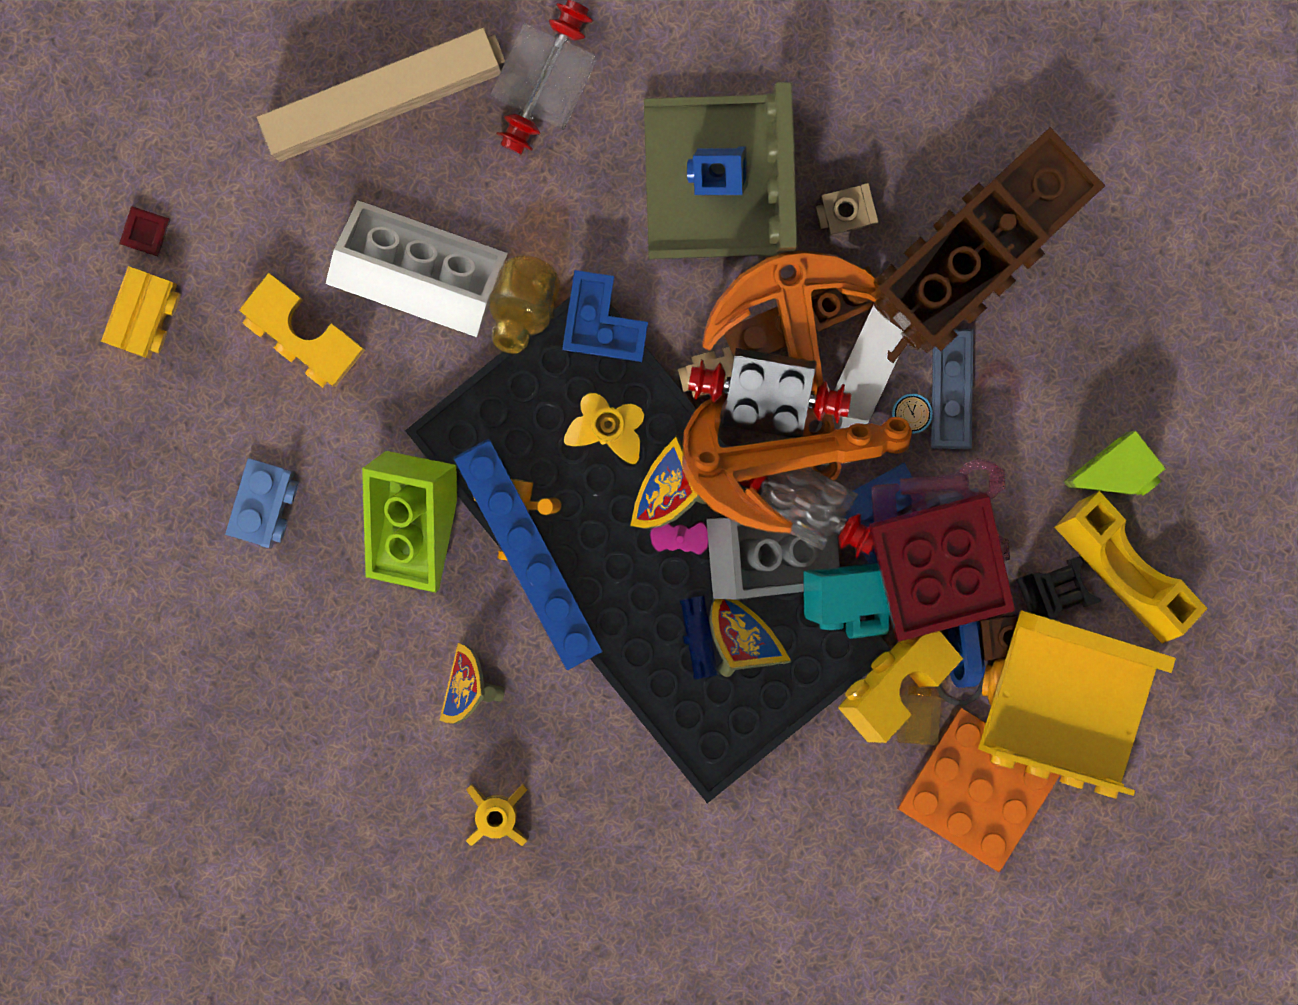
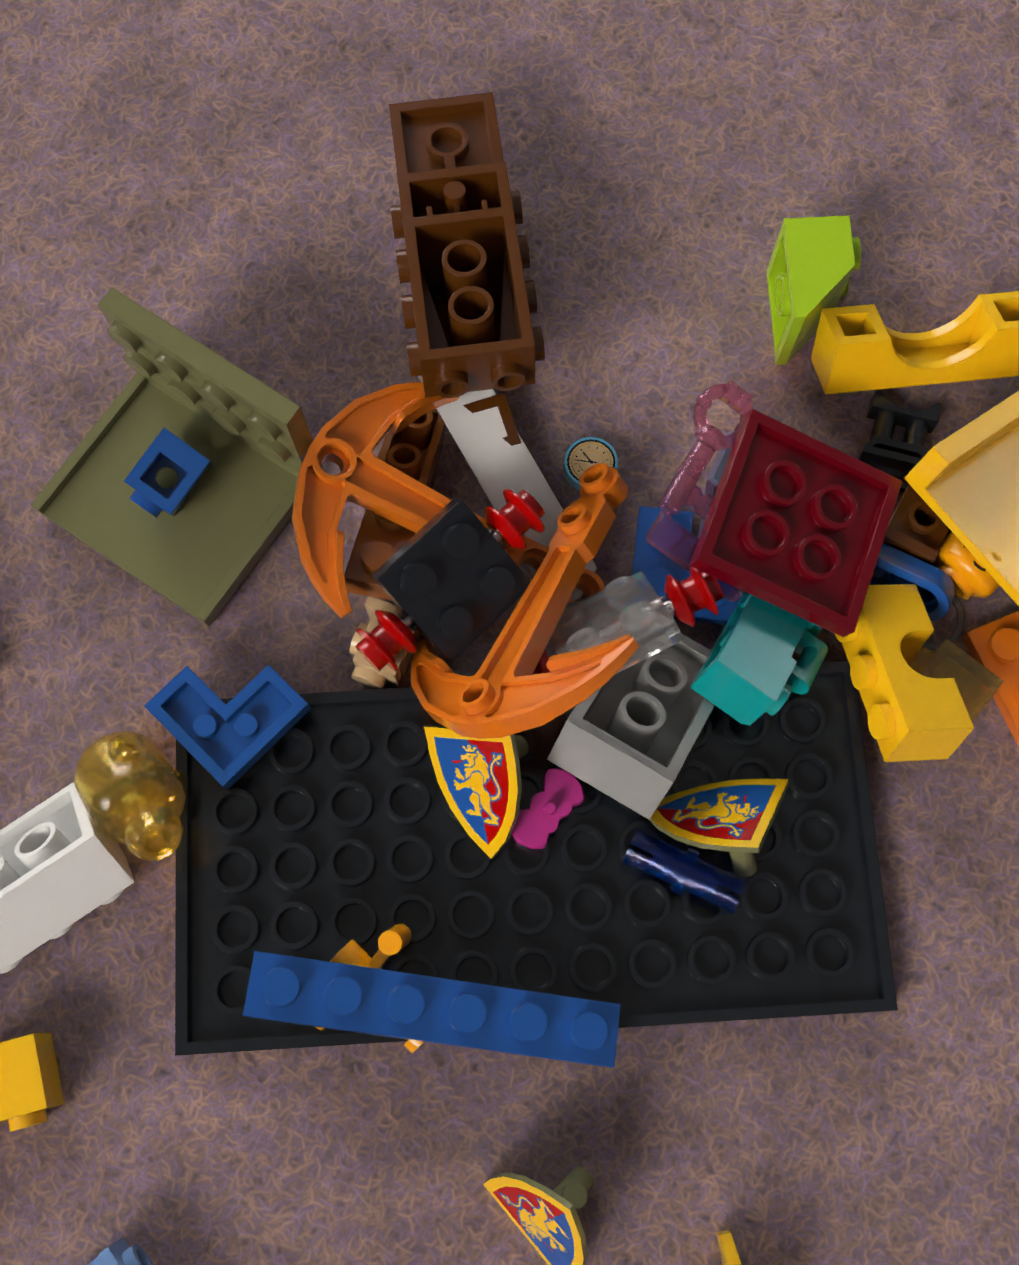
camera: 55 degrees left, 15 degrees down
(408, 519) = (281, 1134): lime slope -> none
(607, 426) = (353, 800): yellow animal -> none
(863, 210) = (337, 366): tan brick -> none
(953, 393) = (597, 409): sand blue tile -> none

